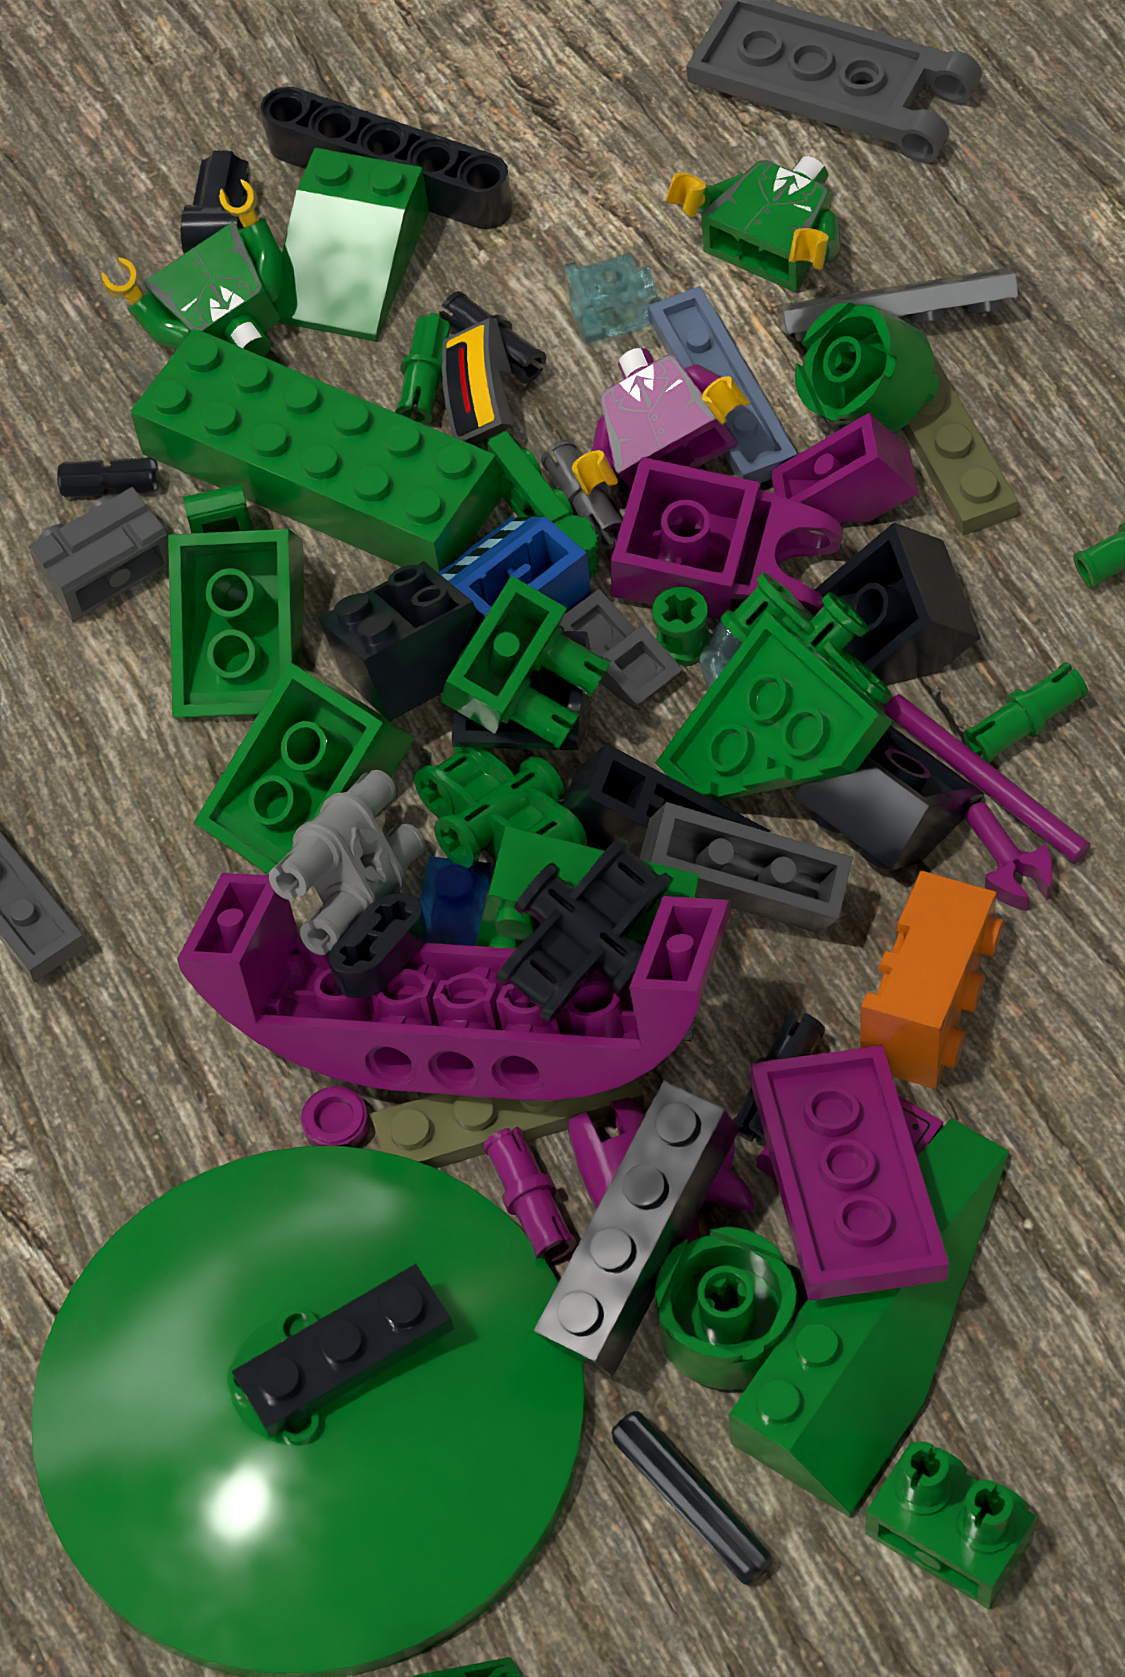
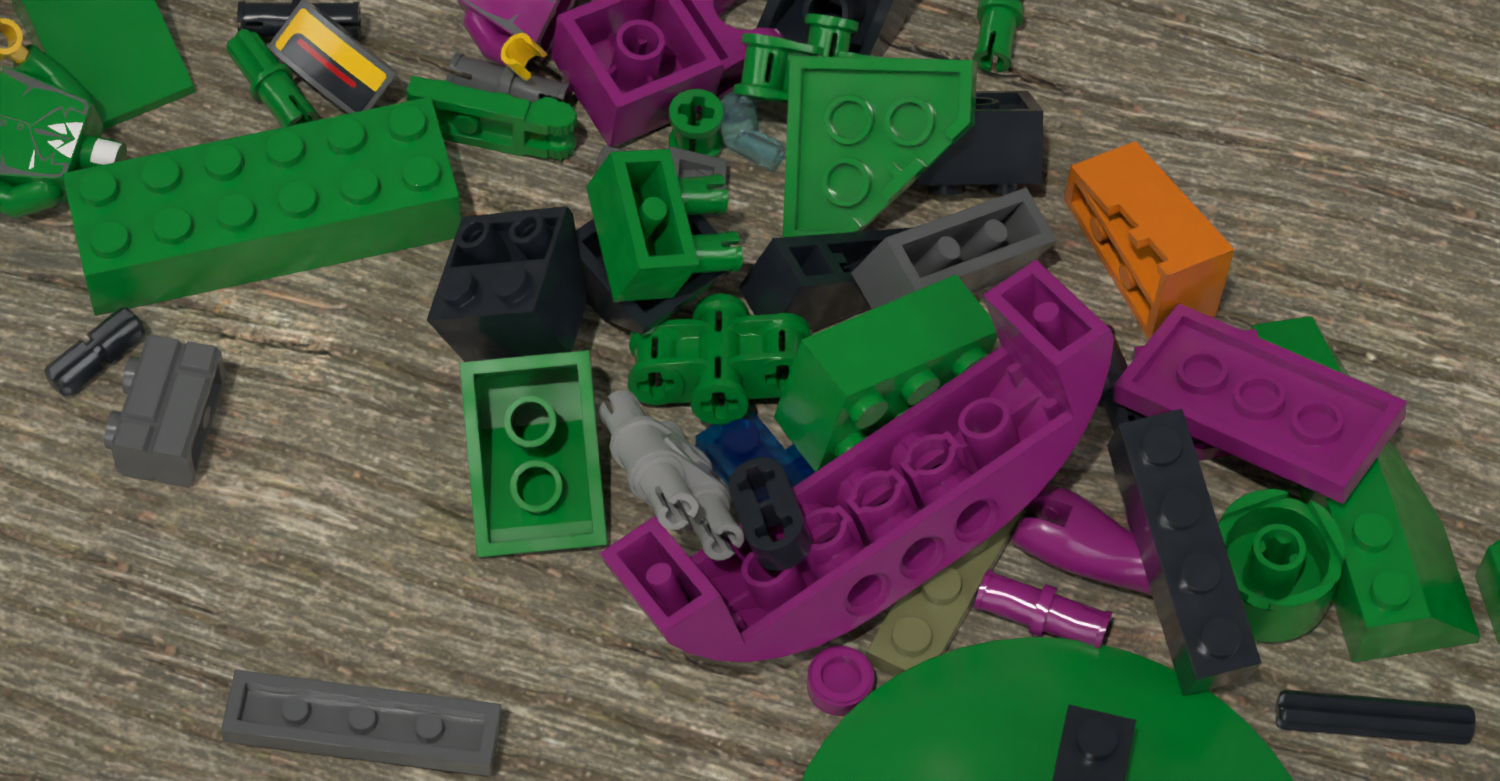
camera: 55 degrees left, 0 degrees up
(218, 510) = (234, 313): green brick -> none
(233, 618) = (348, 380): green slope -> none
(529, 551) = (531, 166): blue slope -> none
(583, 928) = (945, 366): black axle -> none
(987, 778) = (1057, 79): magenta bar -> none
(1009, 859) = (1100, 121): magenta bar -> none

